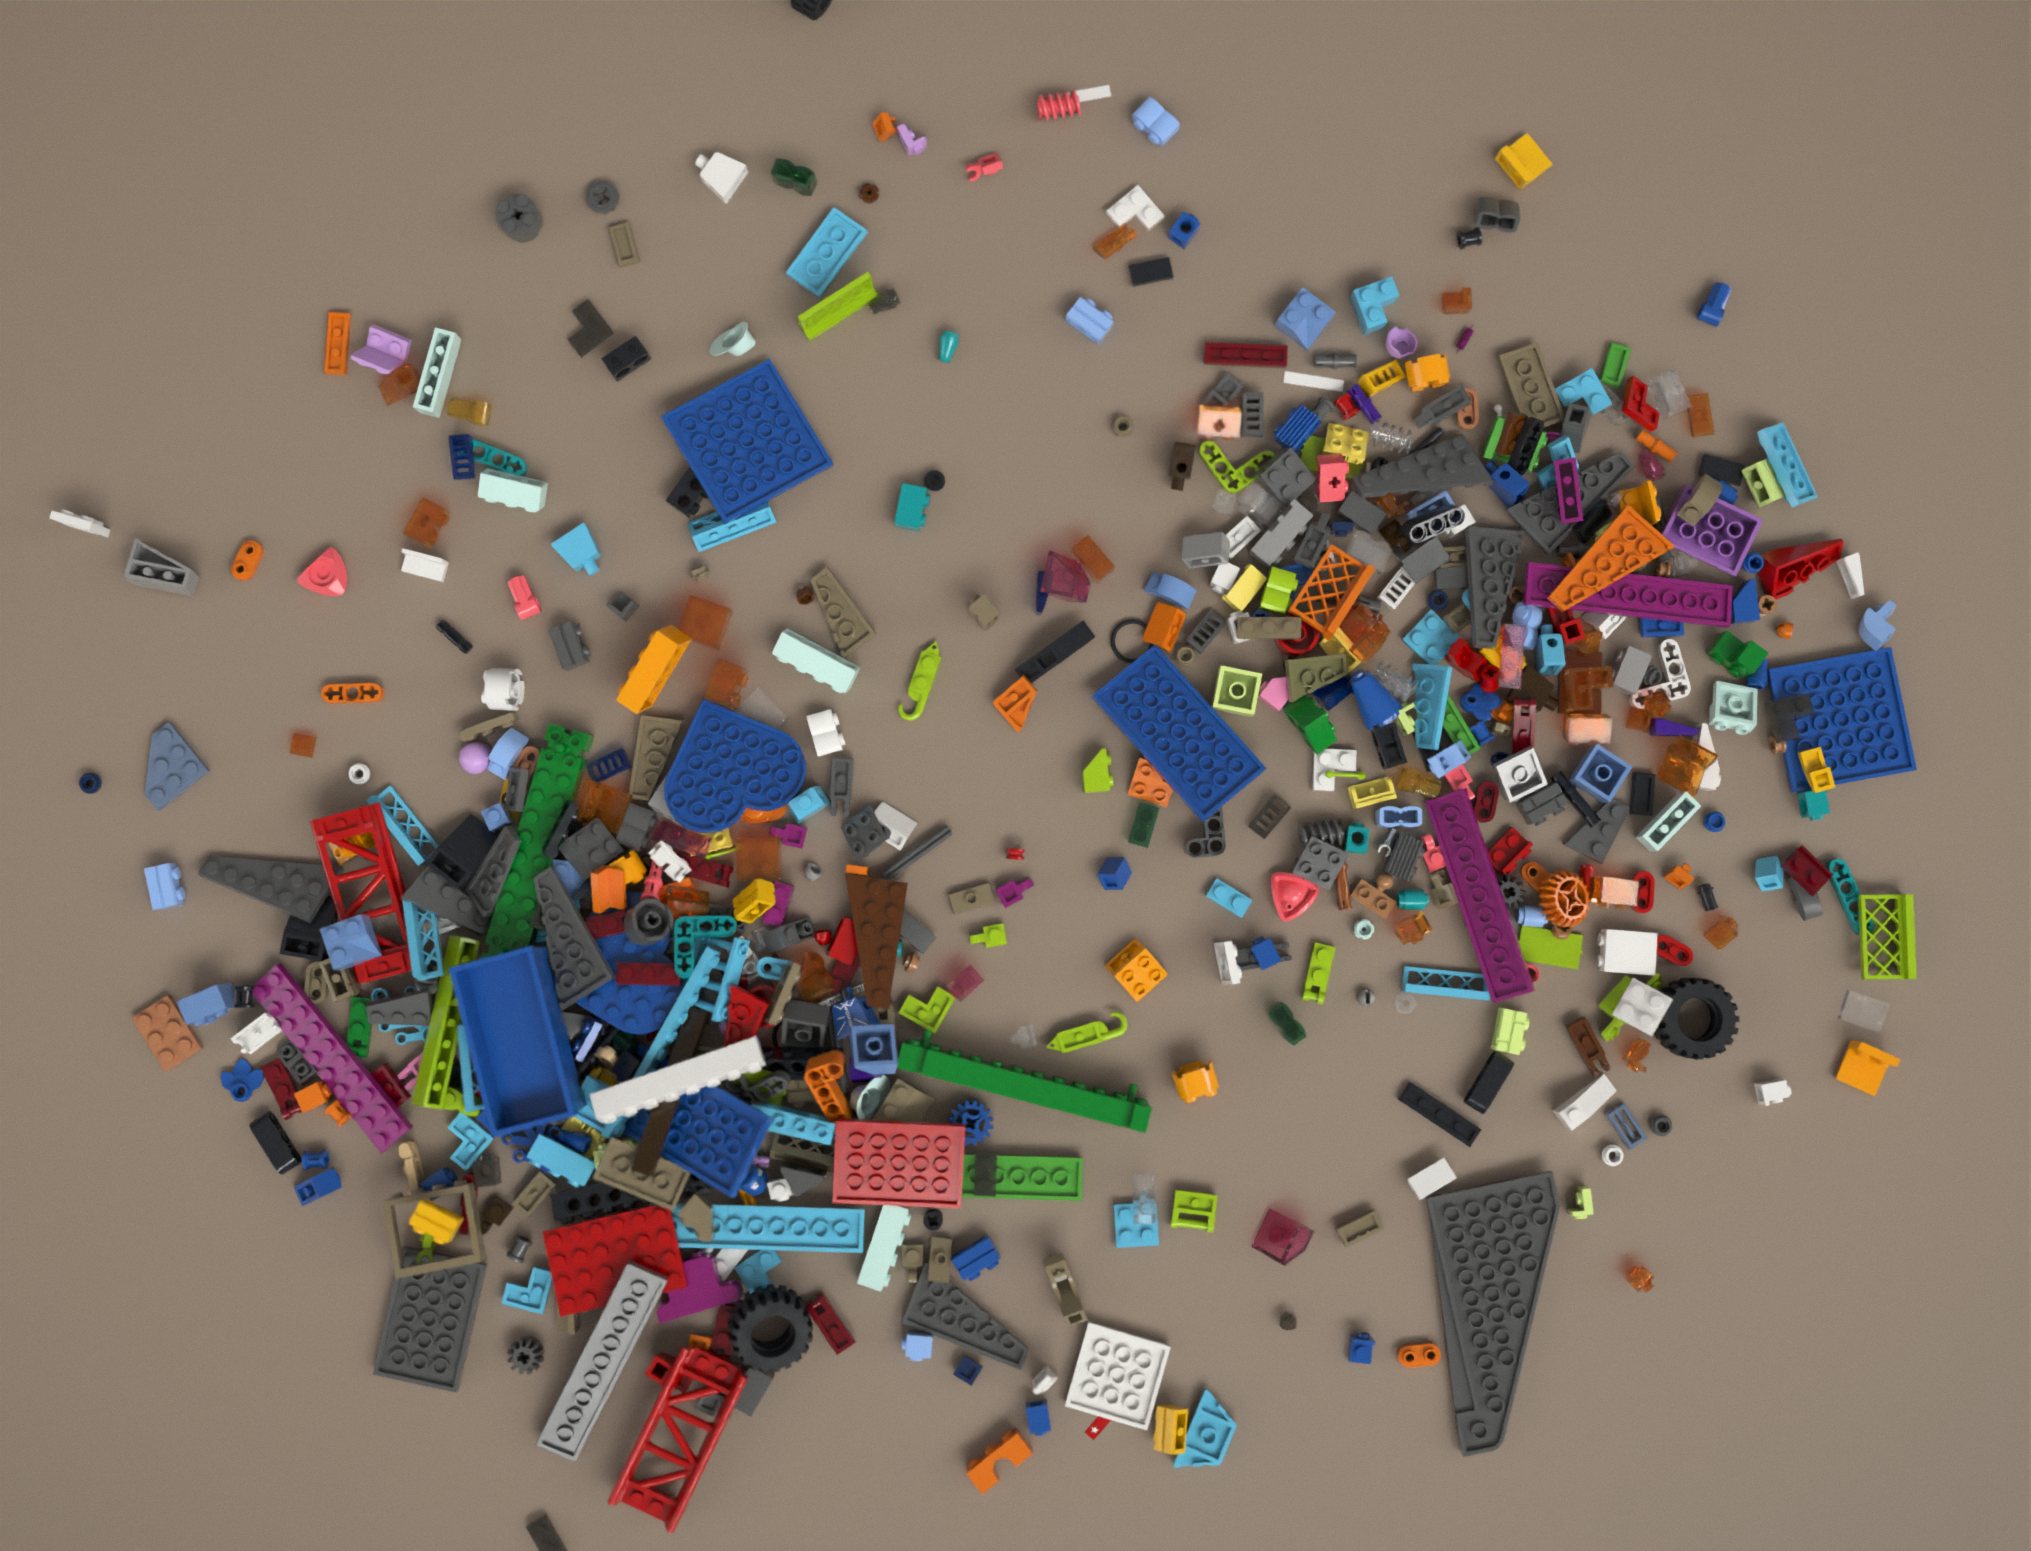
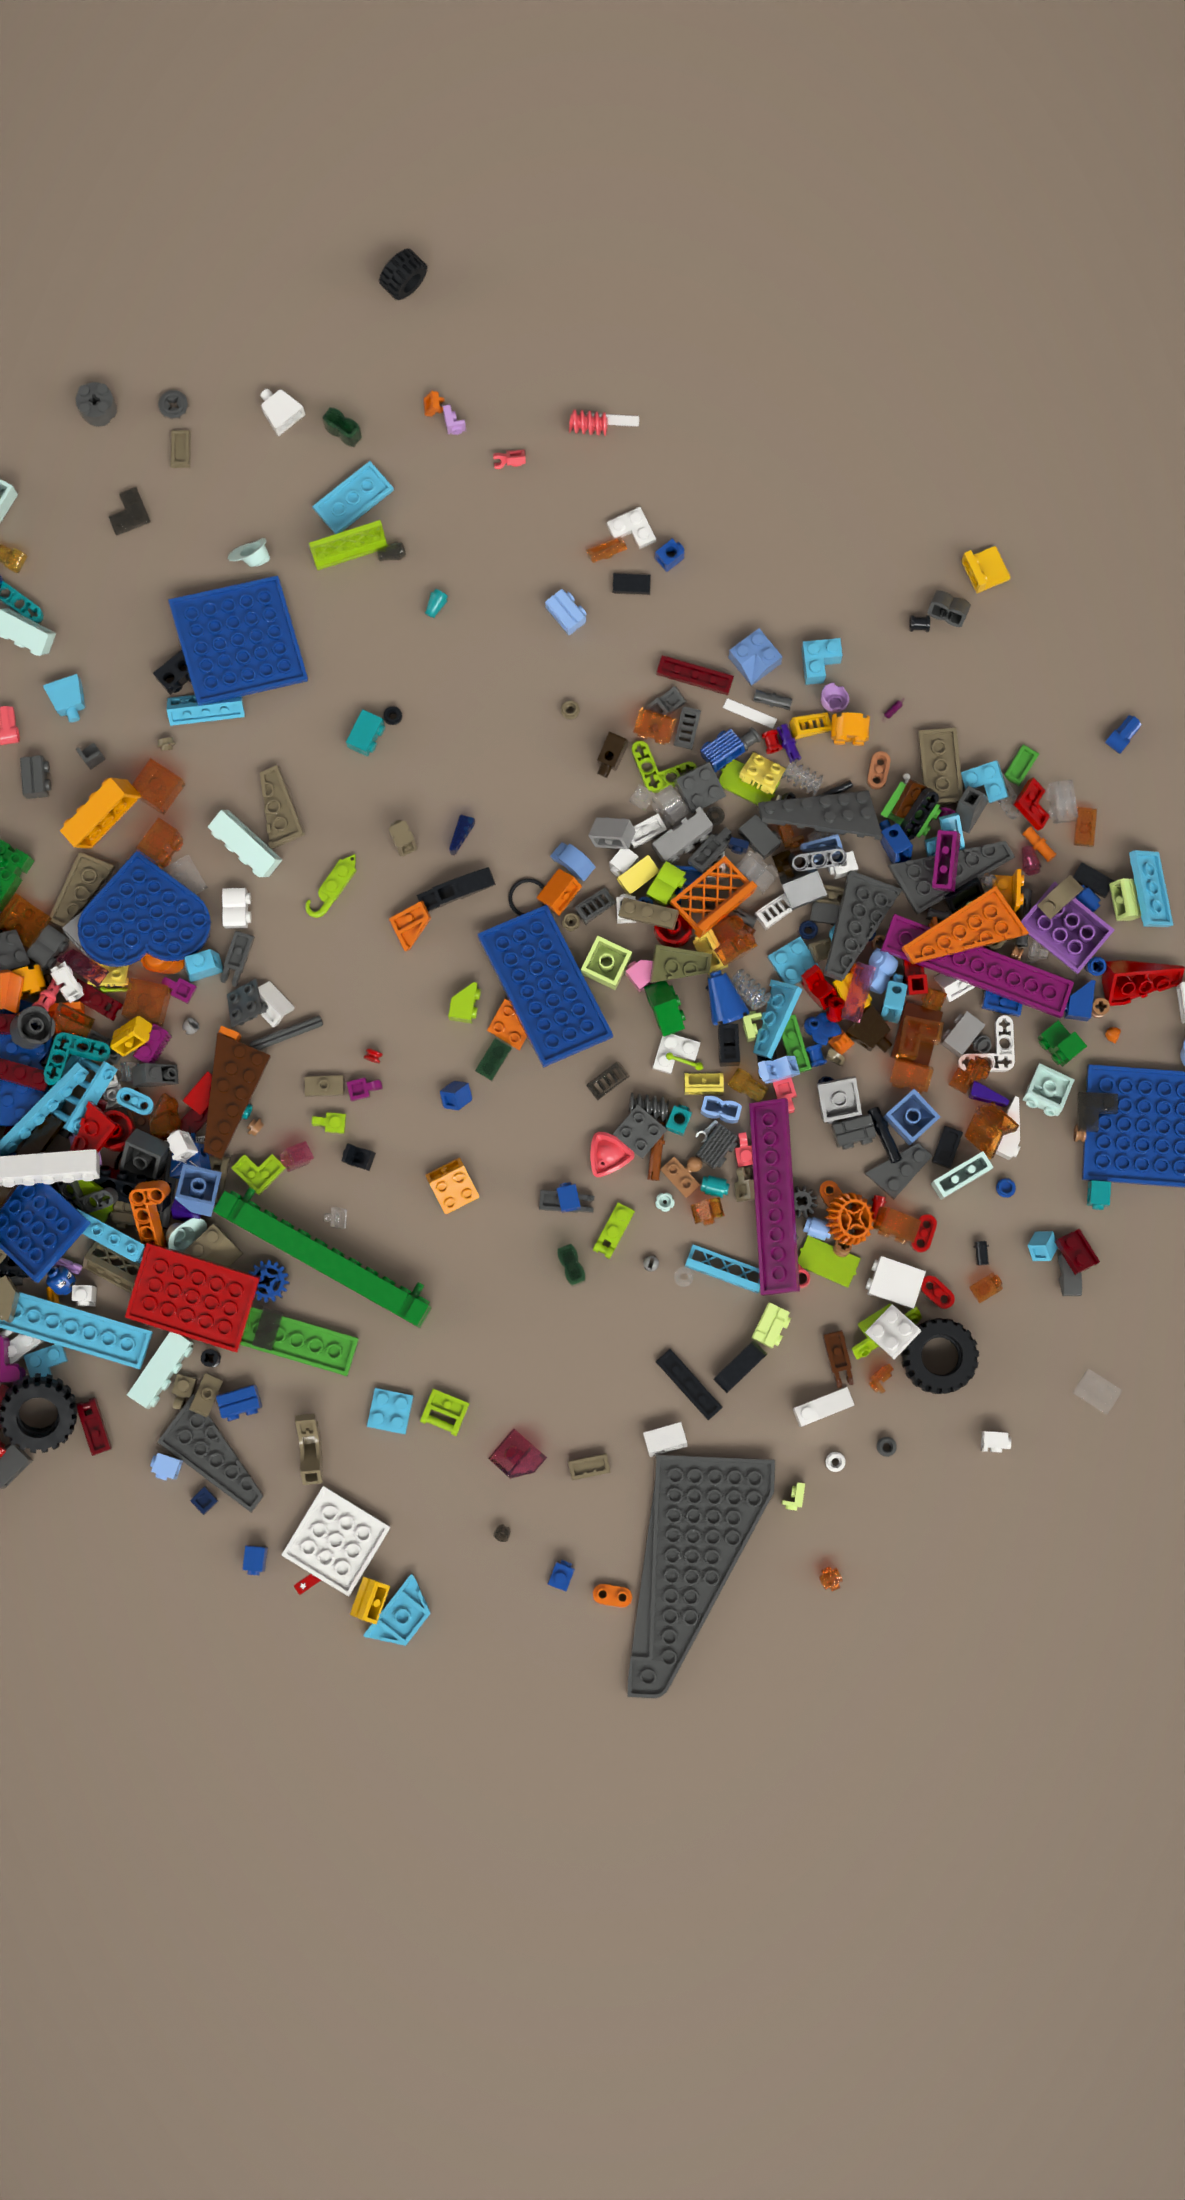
camera: 20 degrees right, 5 degrees down
(612, 756) = (52, 880): clear blue slope -> none
(626, 358) = (154, 545): black brick -> none
(782, 993) = (132, 1121): dark tan plate -> none
(801, 1177) = (103, 1290): dark grey slope -> none
(807, 599) = (247, 786): reddish brown hinge -> none
(823, 937) = (183, 1085): red hinge -> none
(842, 1005) = (181, 1145): none -> white brick
(869, 188) = (404, 461): reddish brown plate -> none
(916, 933) = (265, 1102): dark grey slope -> none
(1012, 1446) = (192, 1594): orange arch -> none
(1030, 966) = (358, 1157): none -> black bracket
(1044, 1380) = (269, 1528): white slope -> none
(1065, 579) = (481, 827): clear pink slope -> none
(1087, 1035) = (392, 1231): lime plate -> none
(1093, 559) = (511, 817): clear orange brick -> none
(1143, 1198) = (401, 1387): clear brick -> none
(1155, 122) = (670, 457): light blue brick -> none
(1195, 1080) = (476, 1294): light orange brick -> none
(1209, 836) = (548, 1085): dark grey beam -> none
(1228, 898) = (552, 1143): medium azure plate -> none
(1228, 969) = (533, 1205): white plate -> none
(1331, 477) = (739, 788): coral brick -> none
(1333, 693) = (692, 987): clear blue slope -> none
(1443, 407) = (856, 762): dark grey hinge -> none
(1457, 302) = (894, 676): clear orange panel -> none
(1485, 802) = (804, 1118): dark red plate -> none
(1508, 851) = (812, 1165): red bracket -> none
(1523, 724) = (854, 1055): dark red plate -> none
(1615, 1110) = (847, 1441): sand blue tile -> none
(1679, 876) = (960, 1227): orange tile -> none
(1759, 678) = (1078, 1067): blue cone -> none
(1815, 769) = (1107, 1163): yellow slope -> none
(1846, 898) = (1111, 1286): teal beam -> none
(1864, 1067) = (1085, 1442): light orange bracket -> none
(1904, 935) = (1151, 1330): lime fence -> none

